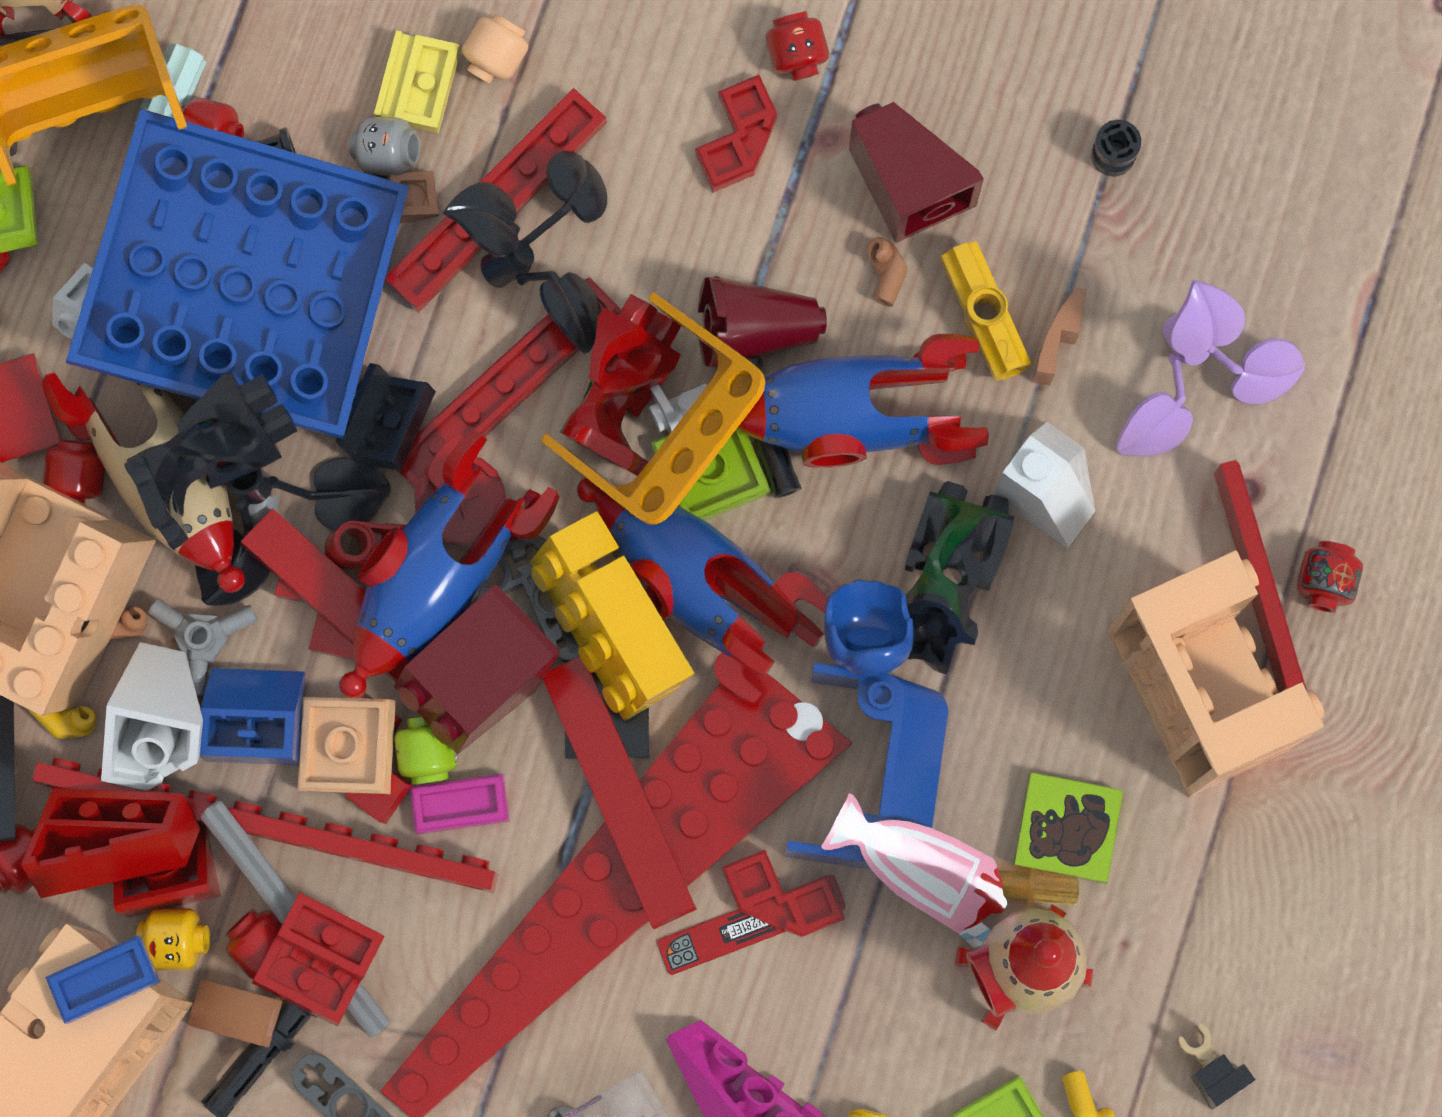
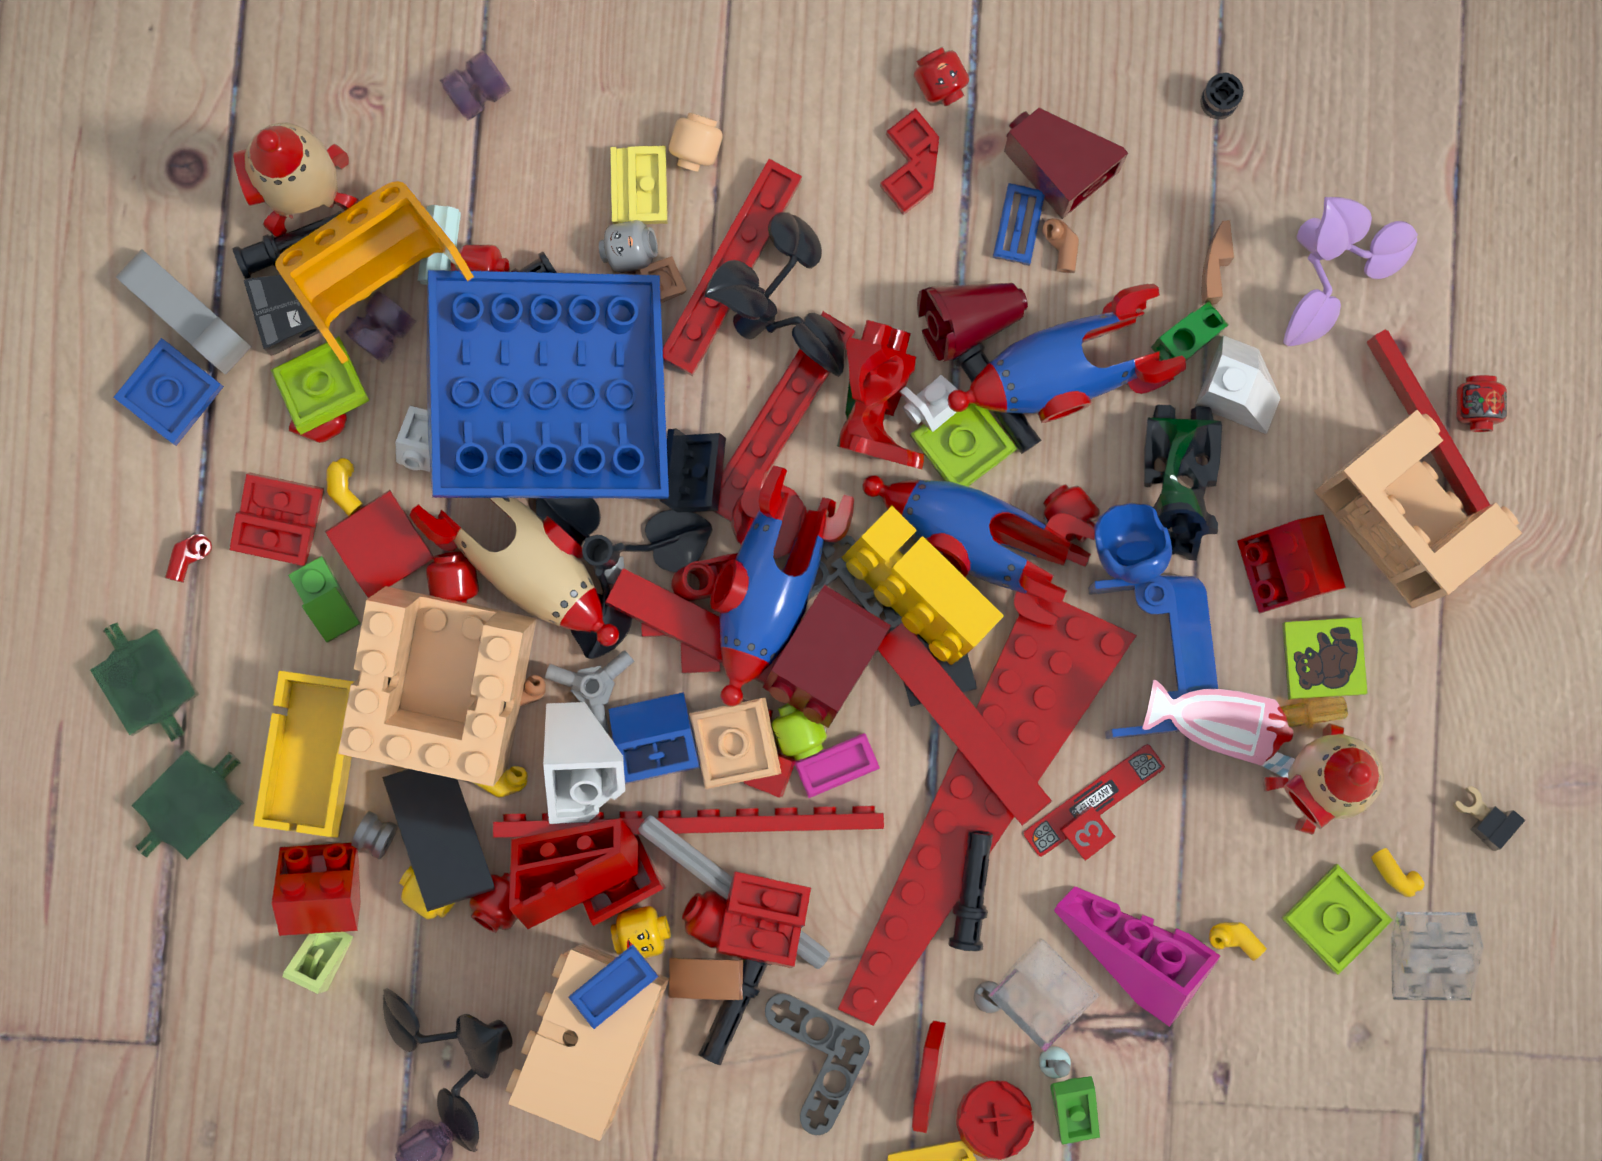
camera: 15 degrees left, 5 degrees up
(75, 165) = (393, 322): none -> wheel
(229, 434) = (574, 527): black hips -> none
(567, 1012) = (970, 907): none -> black pin
(693, 440) = (955, 430): light orange windscreen -> none
(732, 960) = (1087, 833): none -> red tile
(794, 911) = (1127, 781): red tile -> none
(807, 722) = (1097, 628): white sticker -> none
(819, 567) = (1074, 502): none -> red head
(826, 269) = (1012, 255): none -> blue tile
(975, 285) = (1137, 237): yellow piece -> none
(1008, 409) = (1190, 333): none -> green leg
(1056, 705) = (1291, 563): none -> red slope

